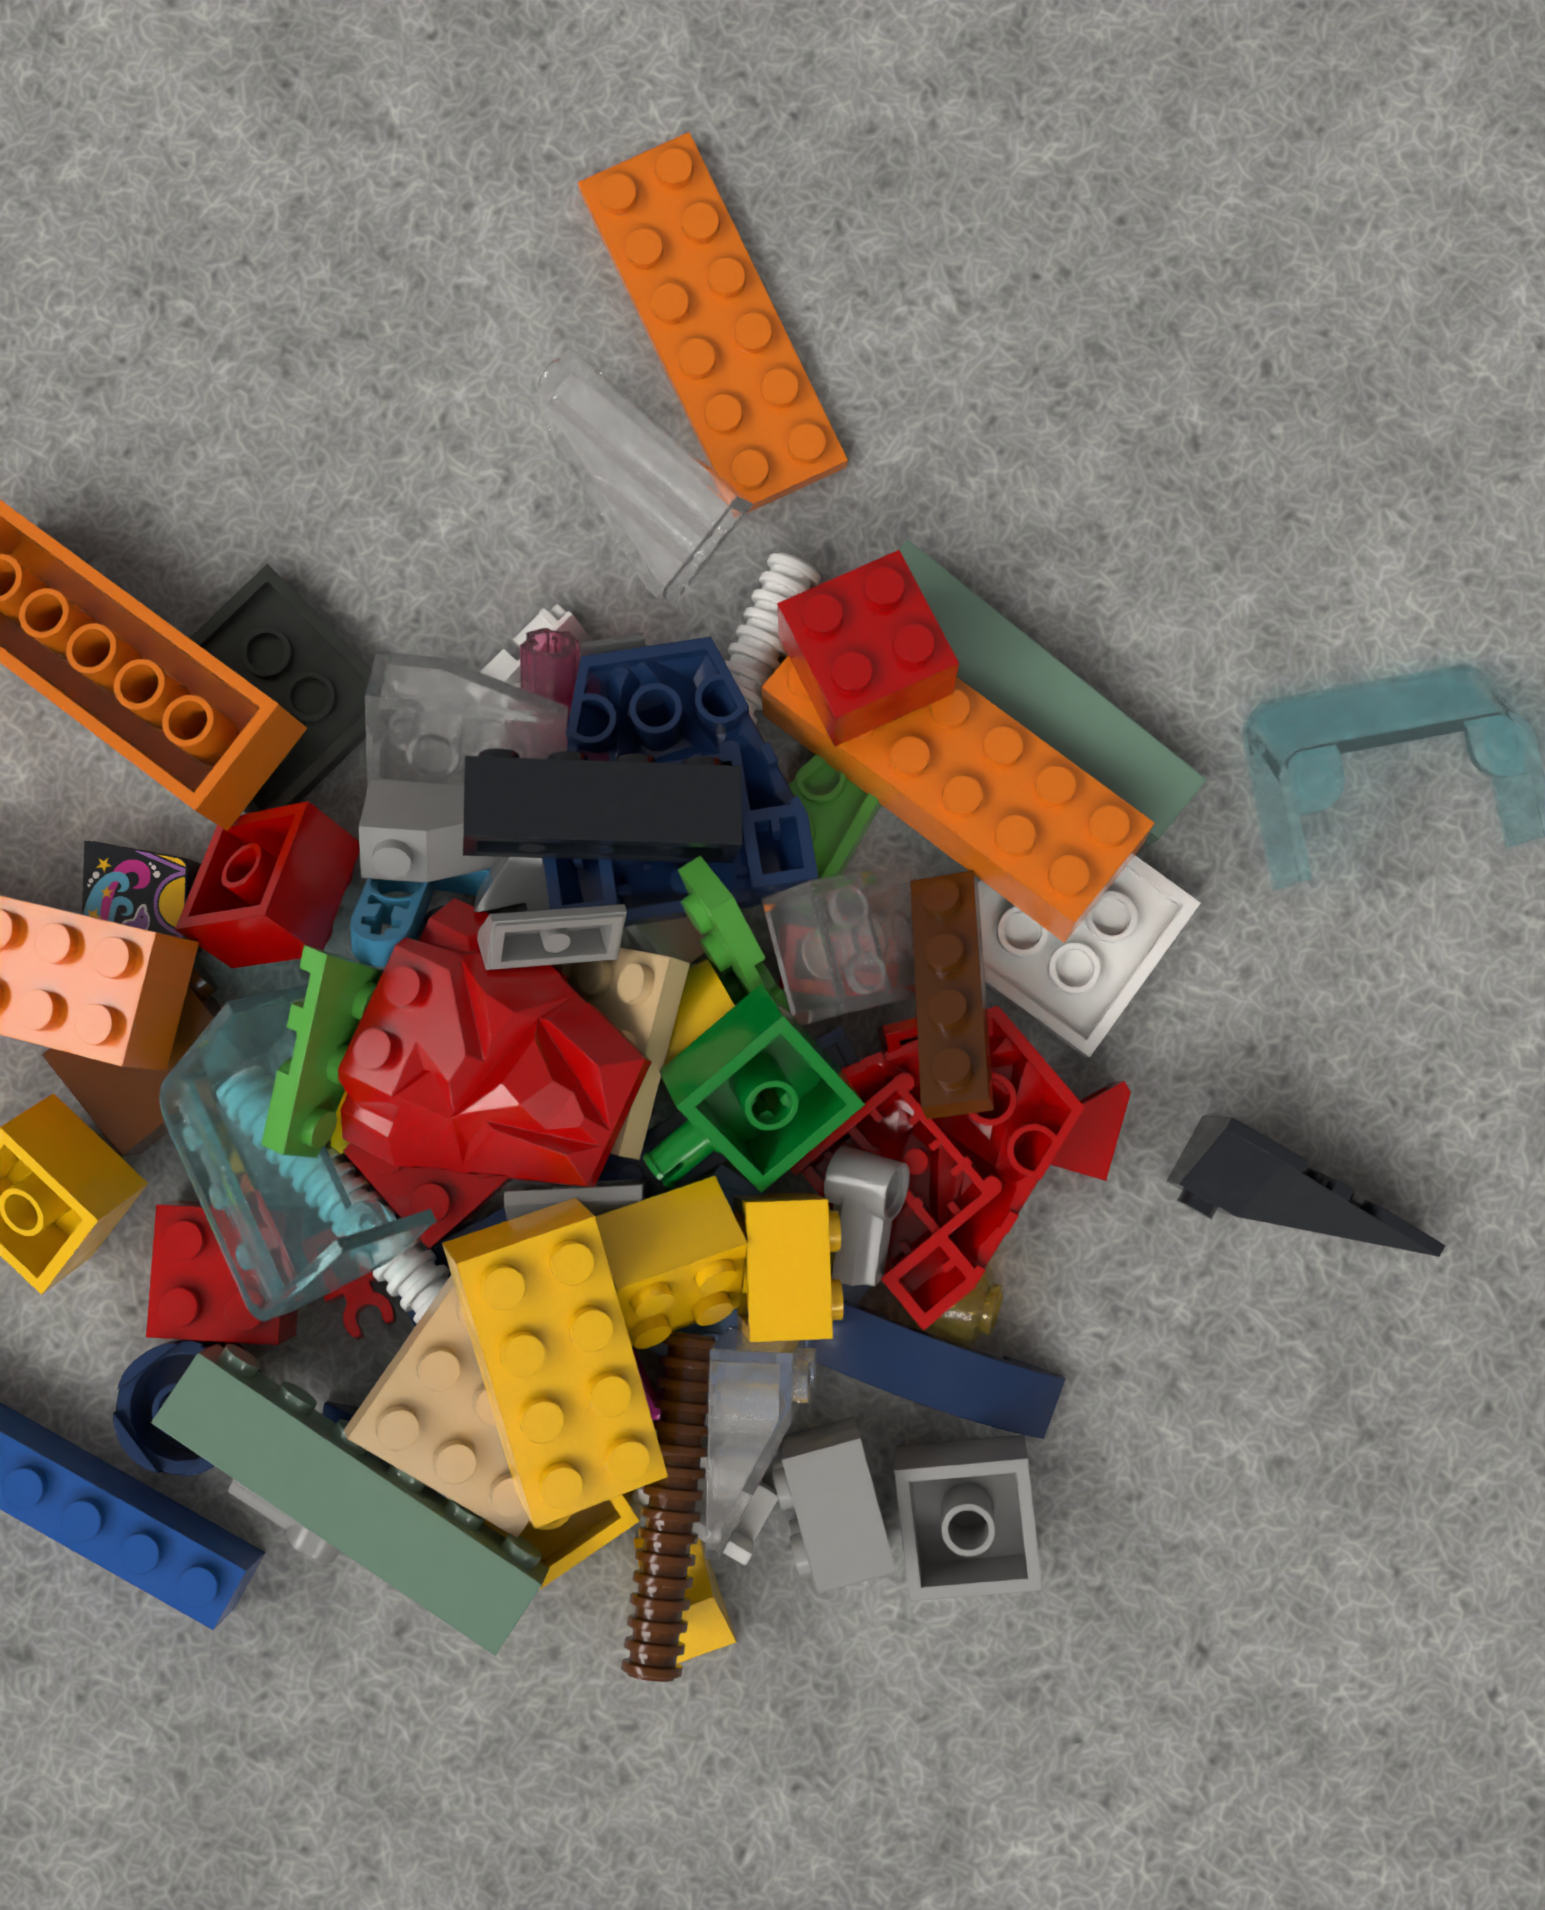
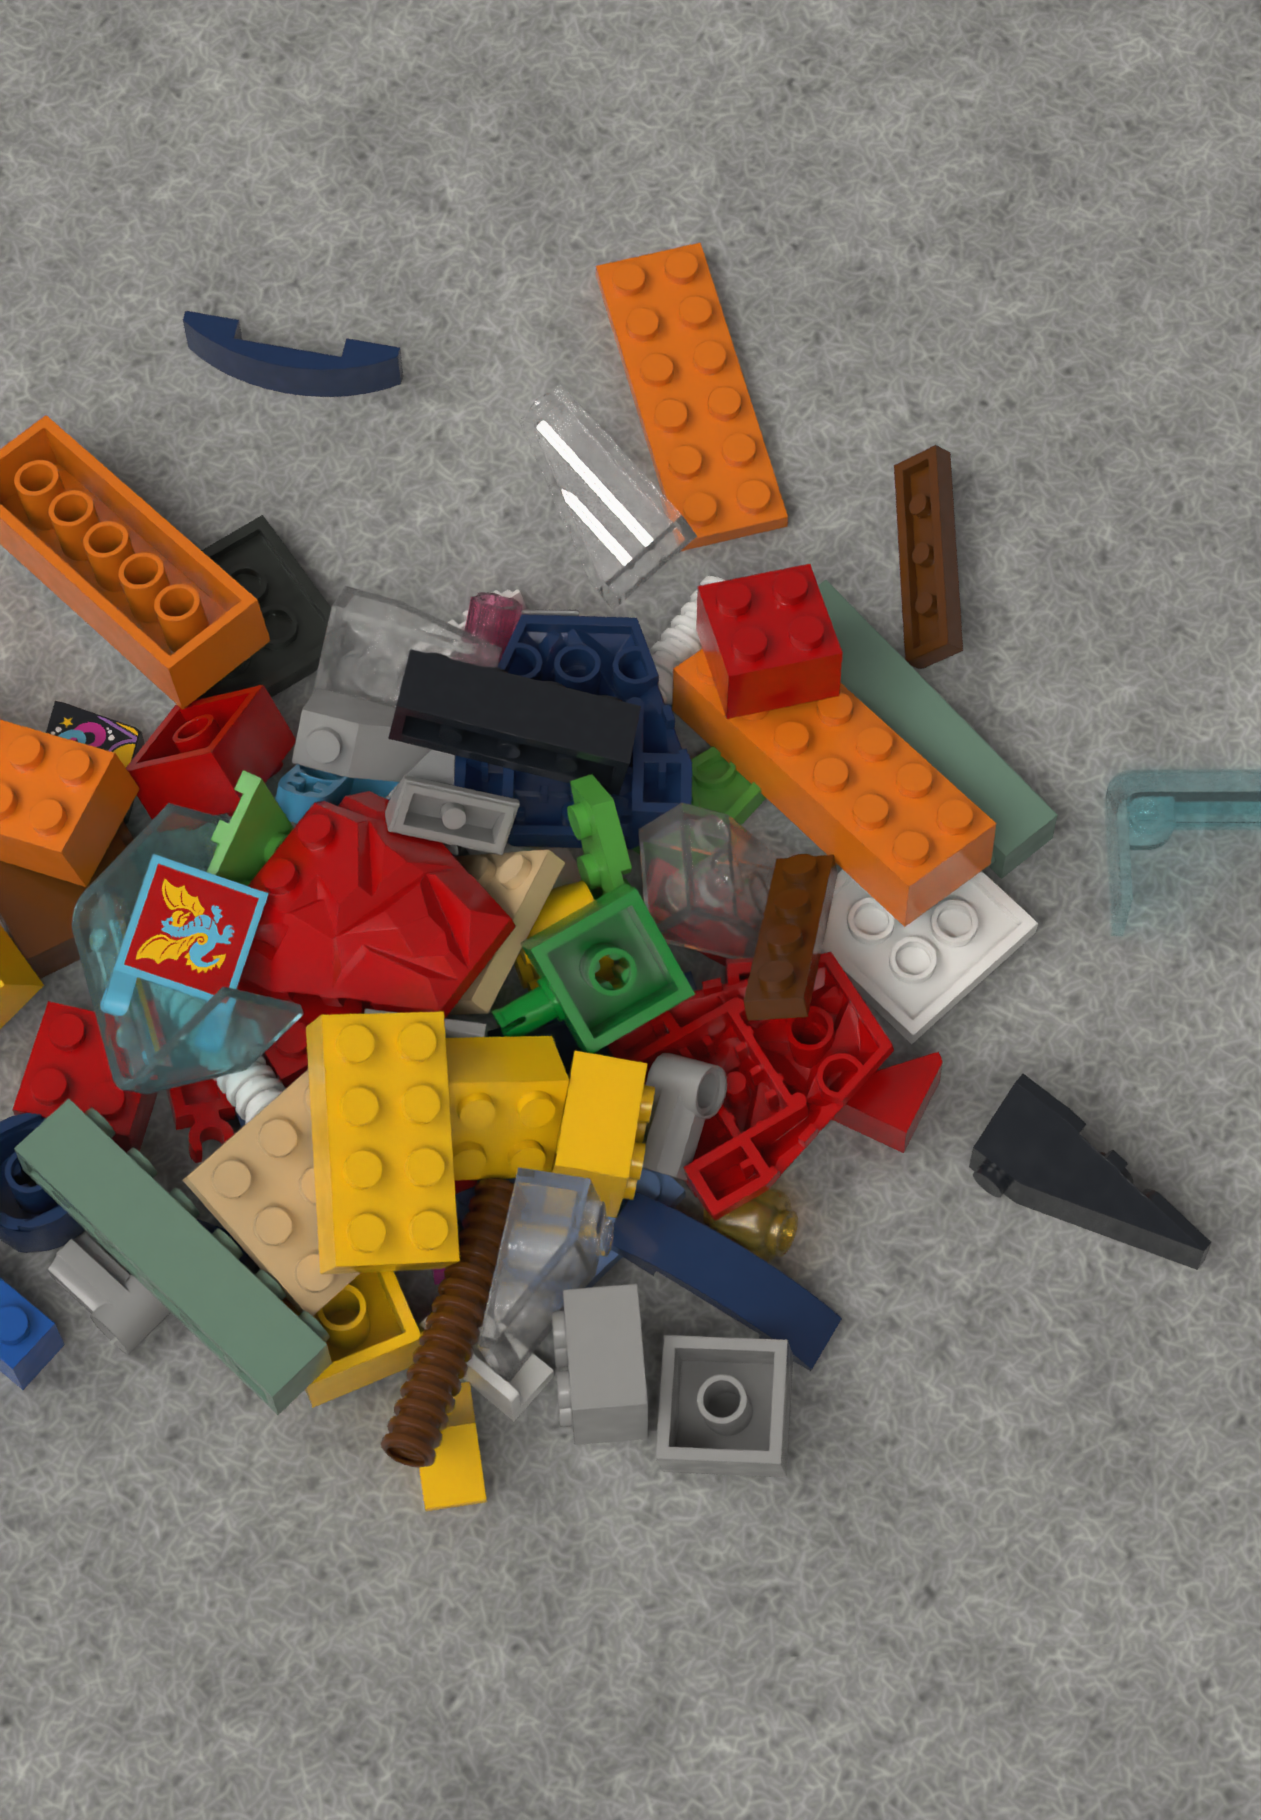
camera: 15 degrees right, 20 degrees down
(286, 1143) = (184, 934): none -> flag
(336, 363) = (360, 369): none -> dark blue slope
(1010, 483) = (928, 557): none -> reddish brown plate

